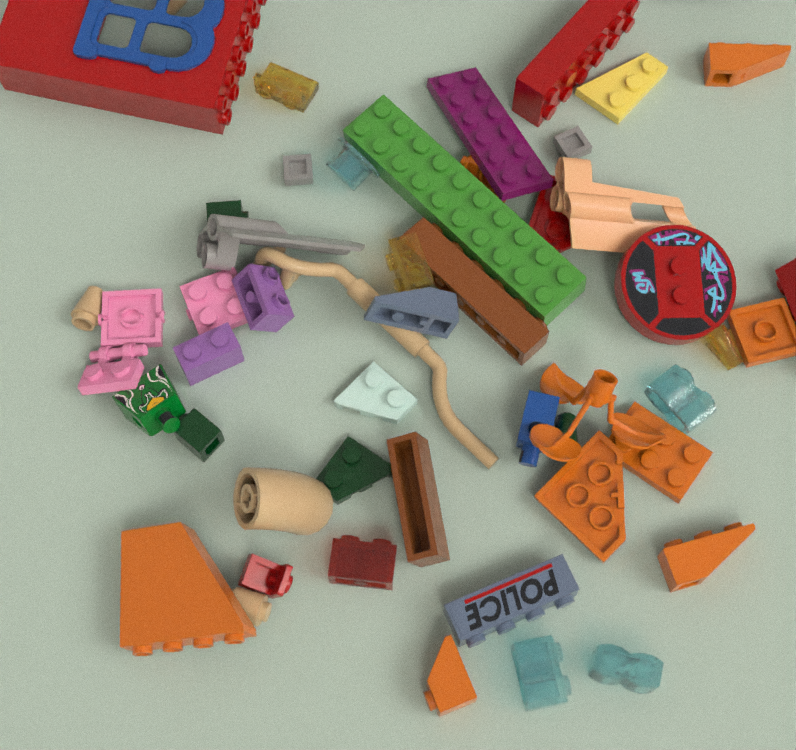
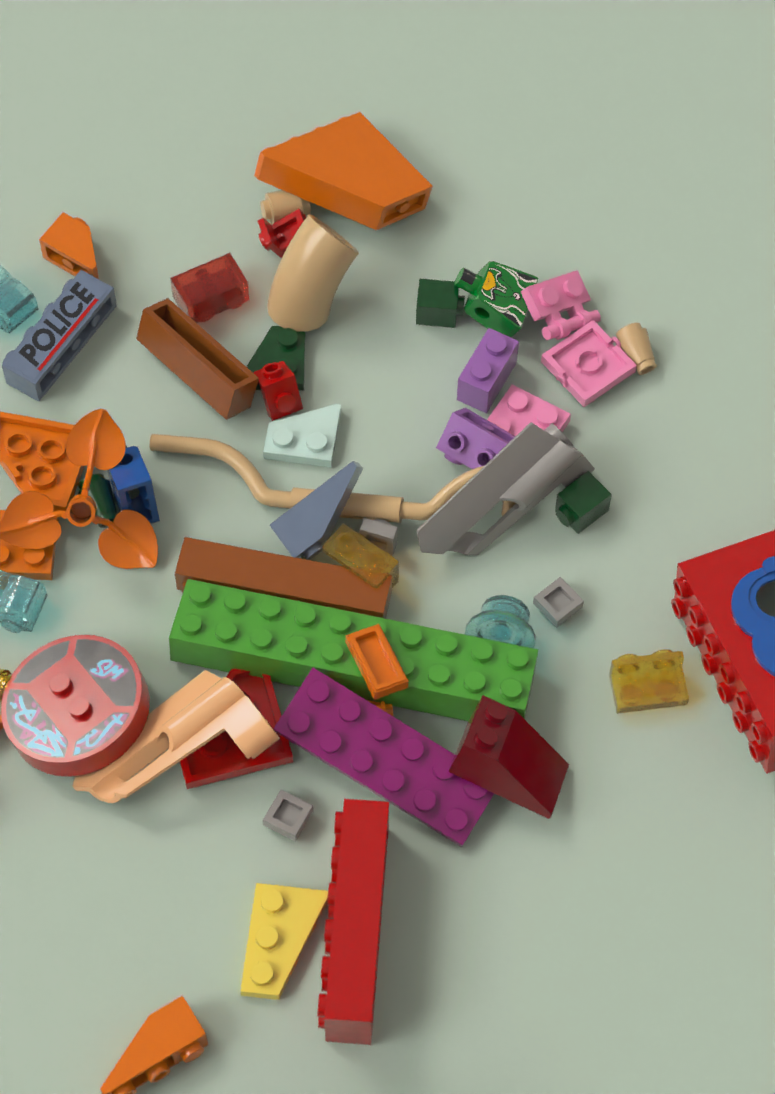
camera: 145 degrees right, 5 degrees down
(372, 438) = (279, 390): none -> red bracket
(381, 280) = (380, 534): none -> light grey plate
(416, 83) = (509, 758): none -> dark red slope
(458, 169) = (376, 661): none -> orange tile

